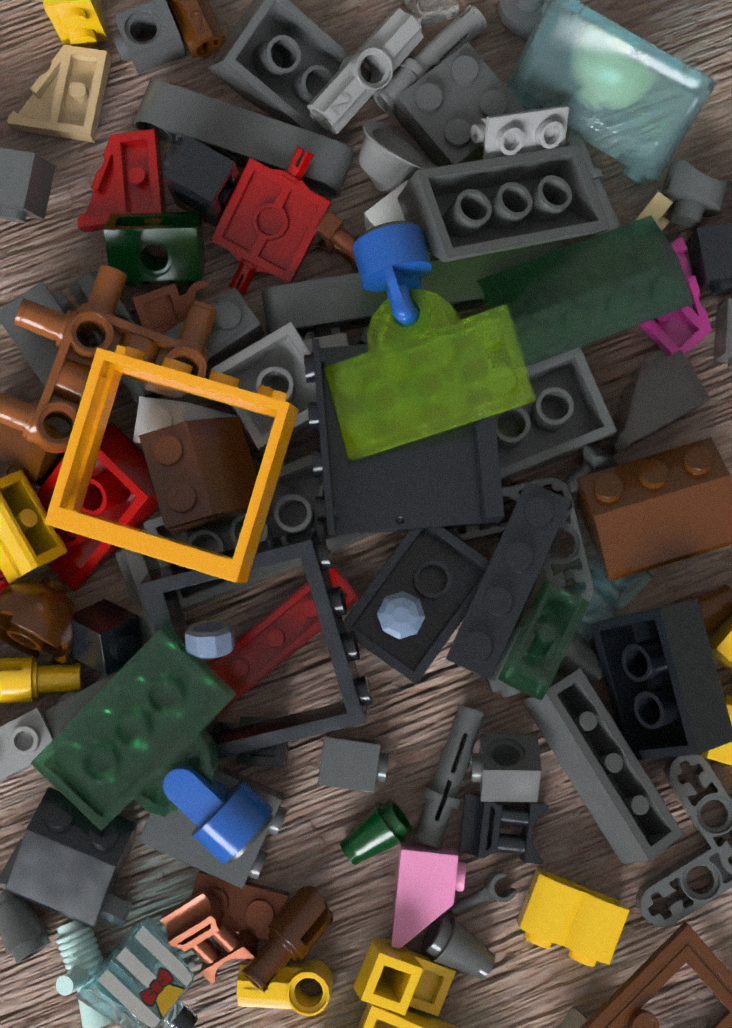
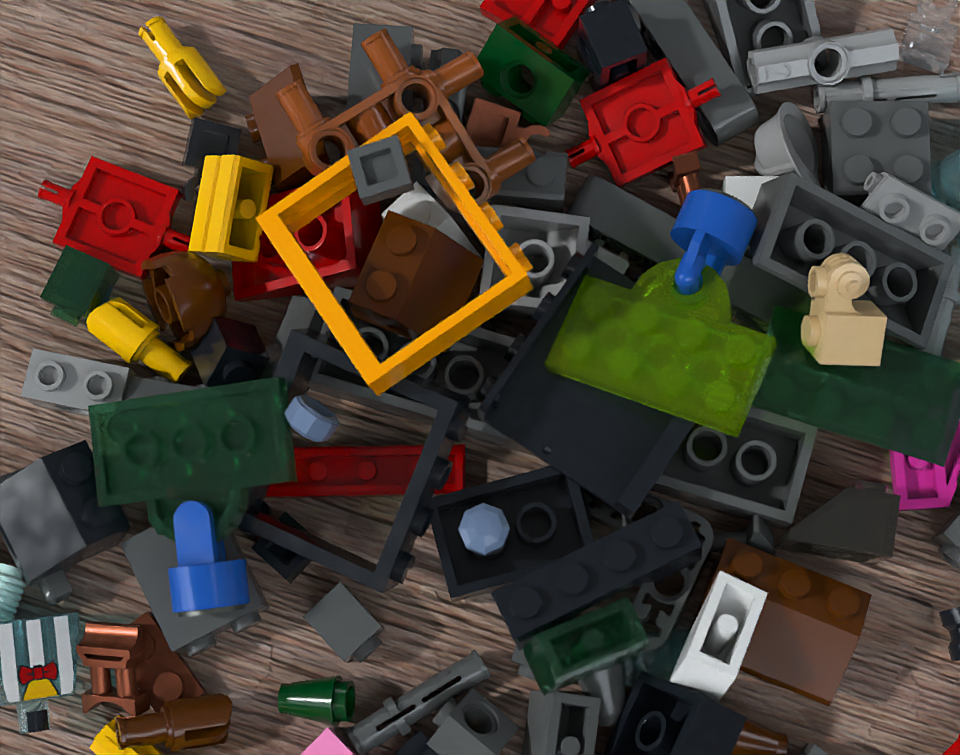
camera: 40 degrees right, 5 degrees down
(111, 411) = (380, 170): none -> dark grey plate
(541, 255) = (842, 328): none -> tan brick
(633, 556) = (719, 637): none -> white slope

